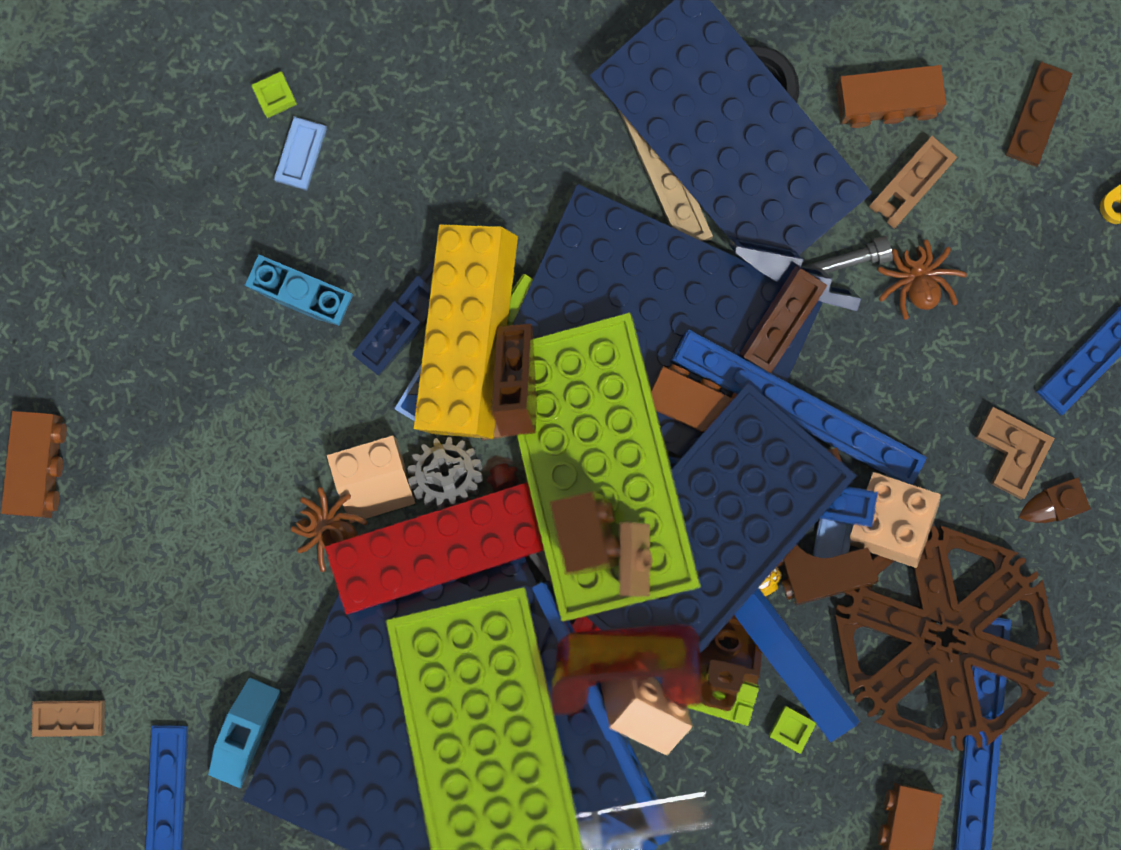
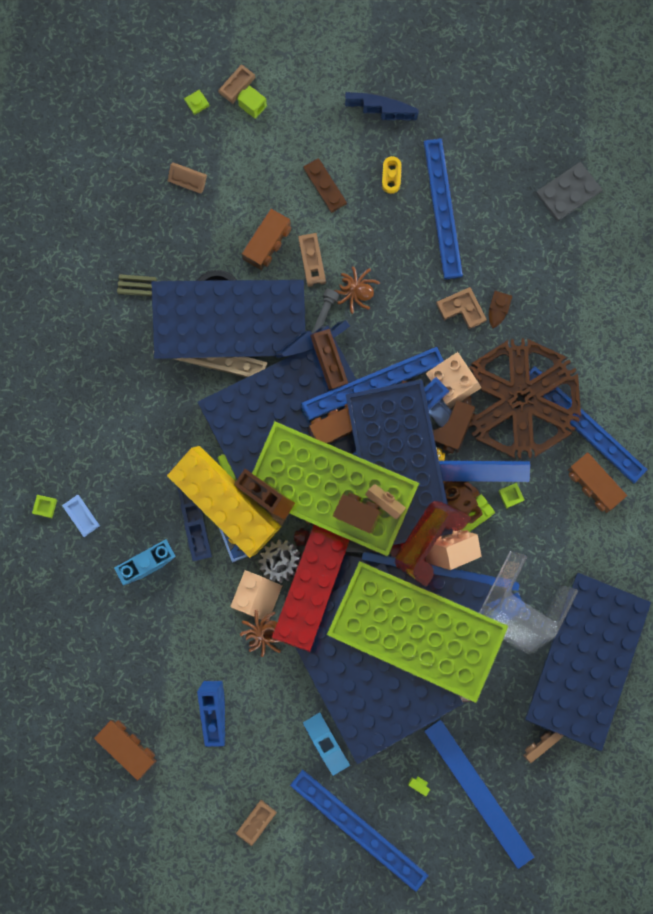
camera: 55 degrees left, 5 degrees down
(169, 542) = (212, 712): none -> blue slope

